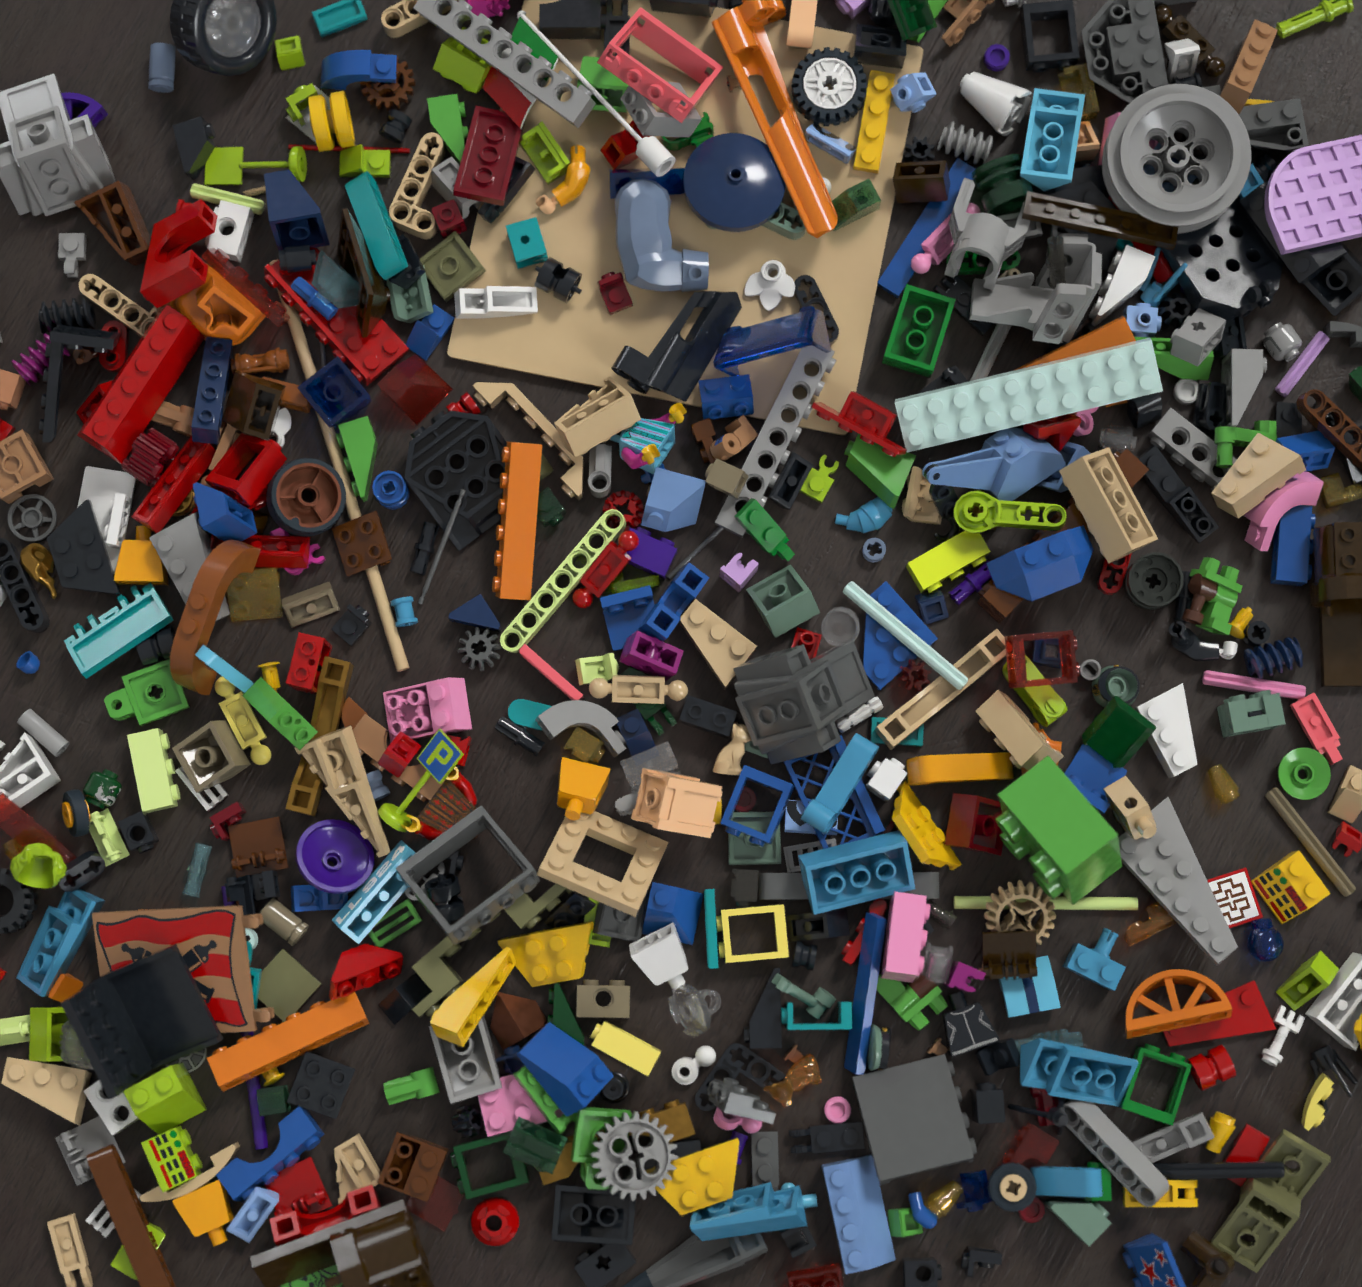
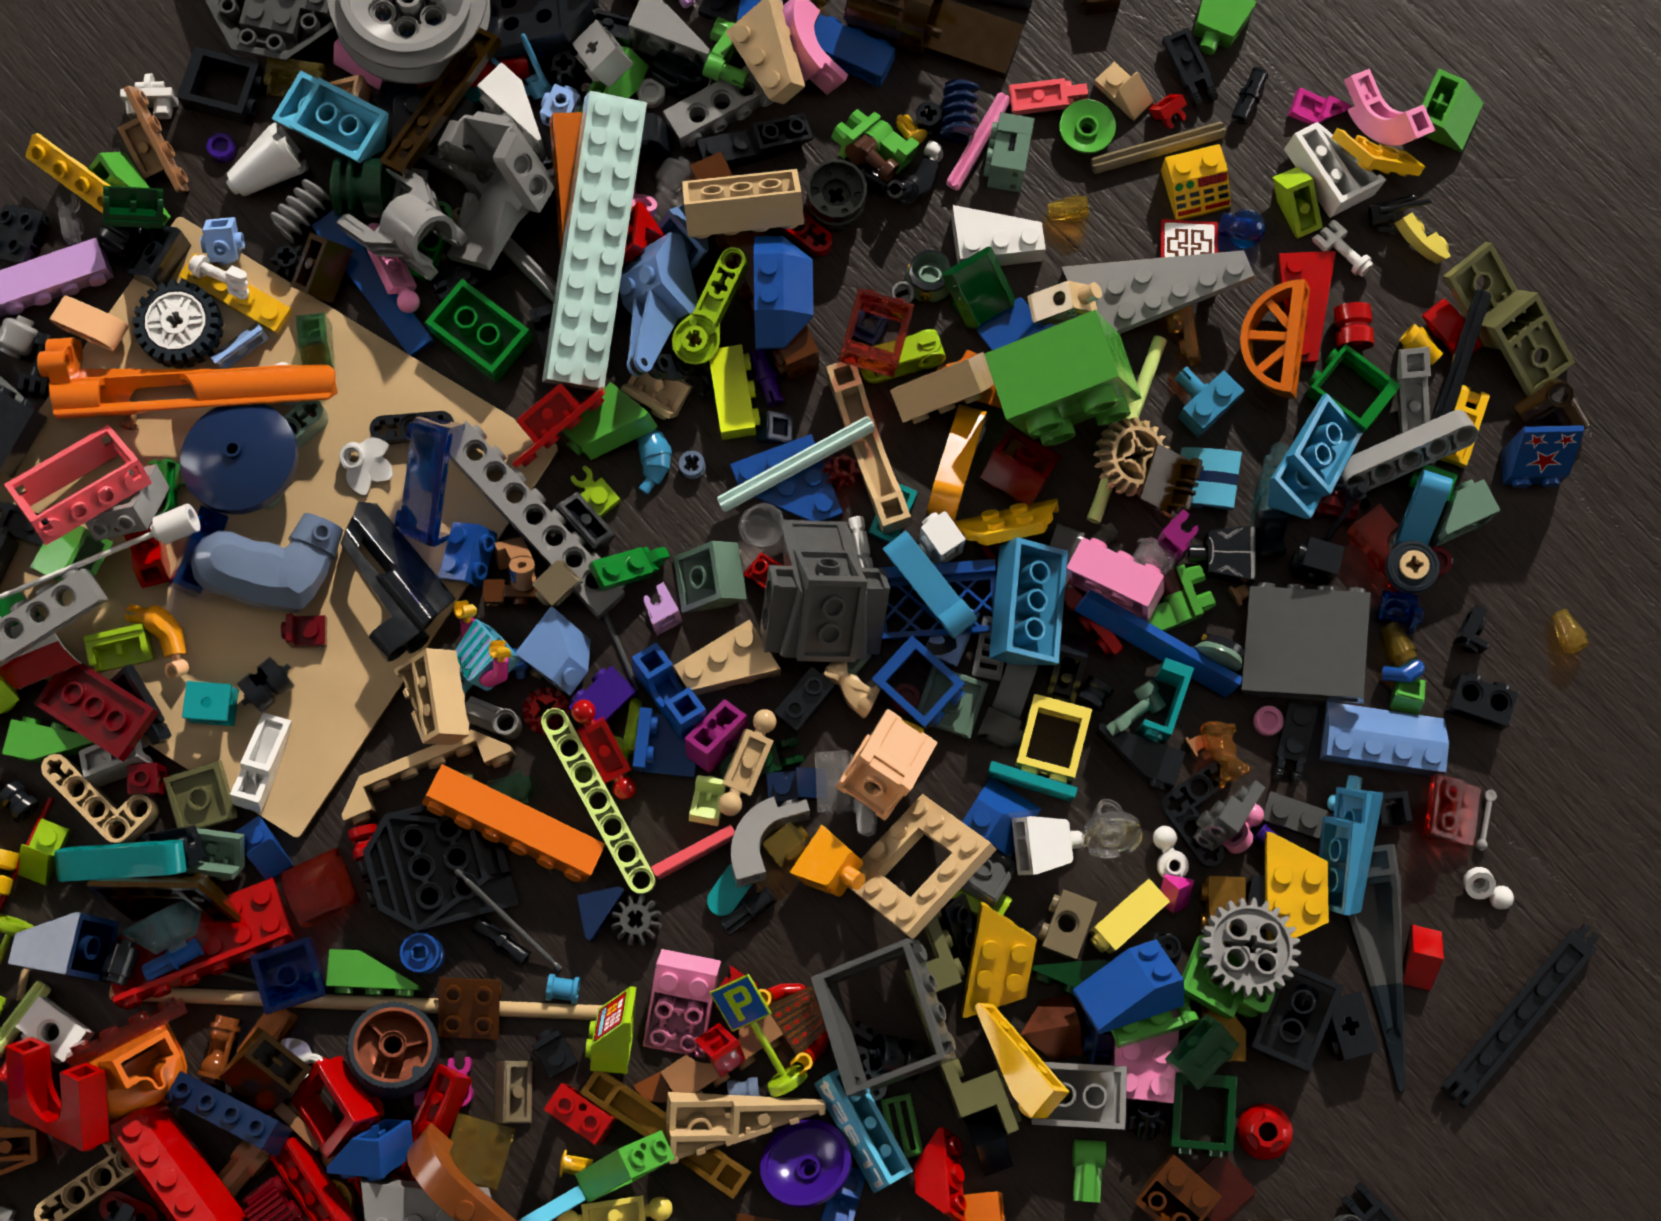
camera: 70 degrees left, 5 degrees down
(380, 665) = (612, 1034): none -> lime slope
(662, 1080) = (1177, 892): none -> dark pink slope
(882, 115) = (234, 277): none -> white hinge

